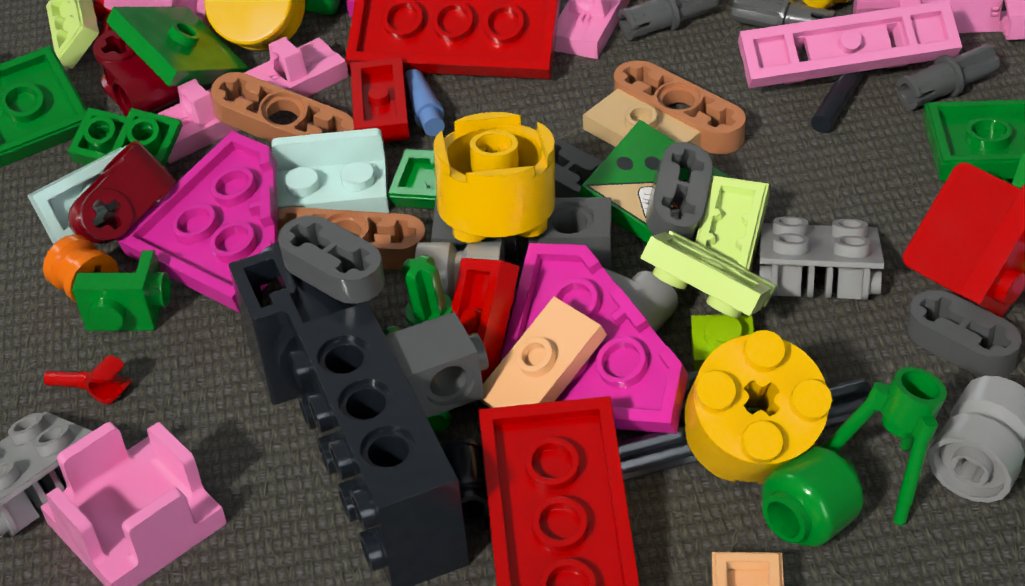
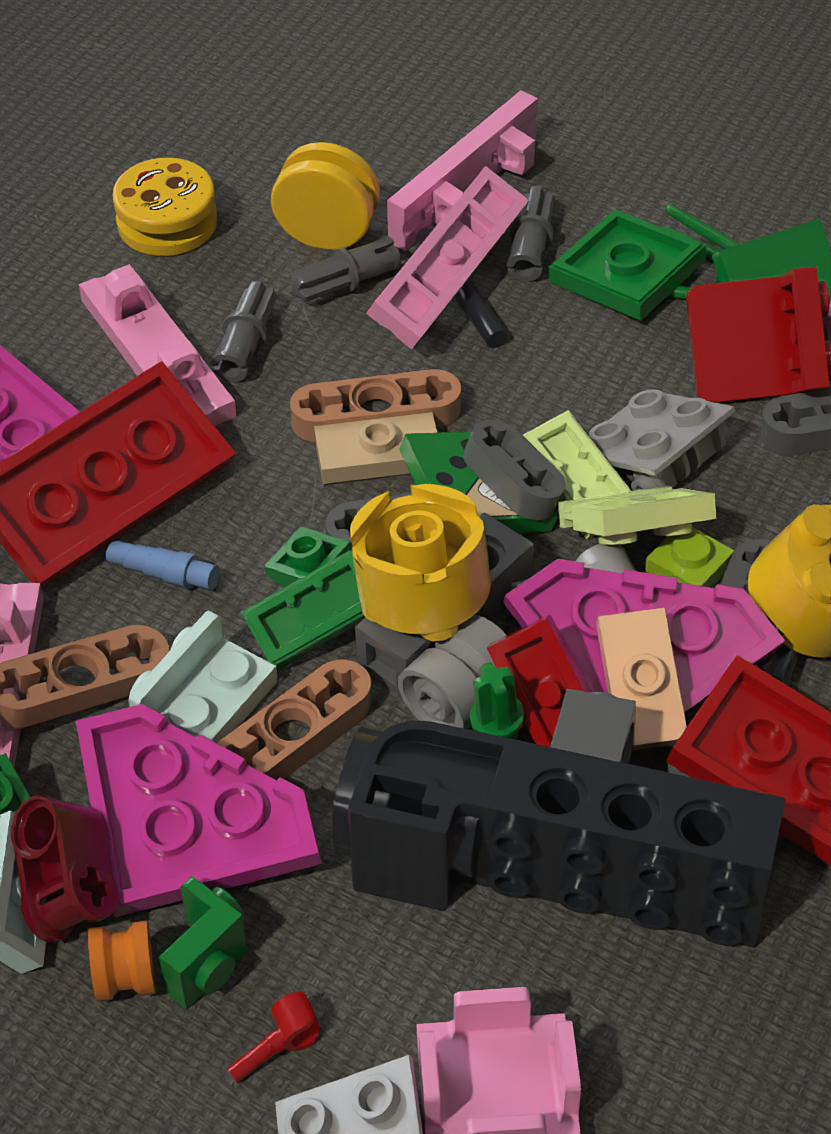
camera: 55 degrees left, 5 degrees up
(338, 252) = (439, 728): dark grey beam -> none
(380, 98) = (130, 591): red plate -> none

